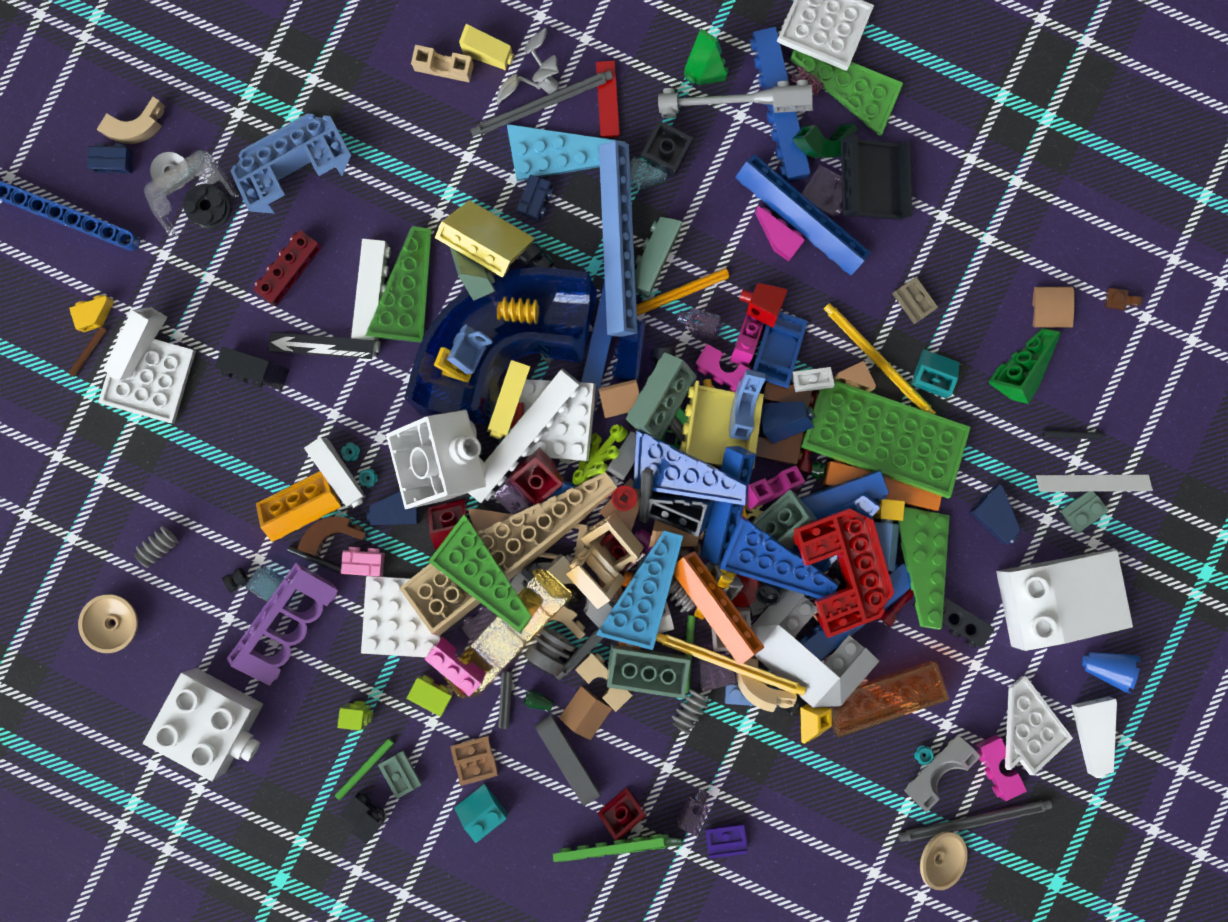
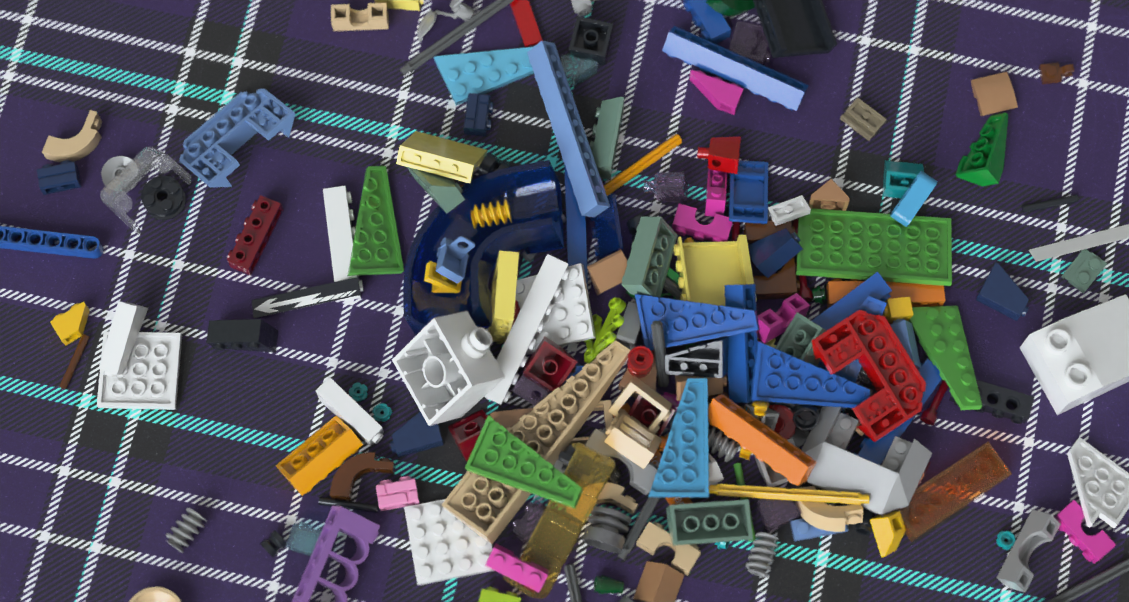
camera: 15 degrees left, 15 degrees down
(744, 404) = (730, 249): medium blue arch -> none
(878, 359) = (838, 176): yellow piece -> none
(939, 401) = (913, 198): none -> dark azure beam

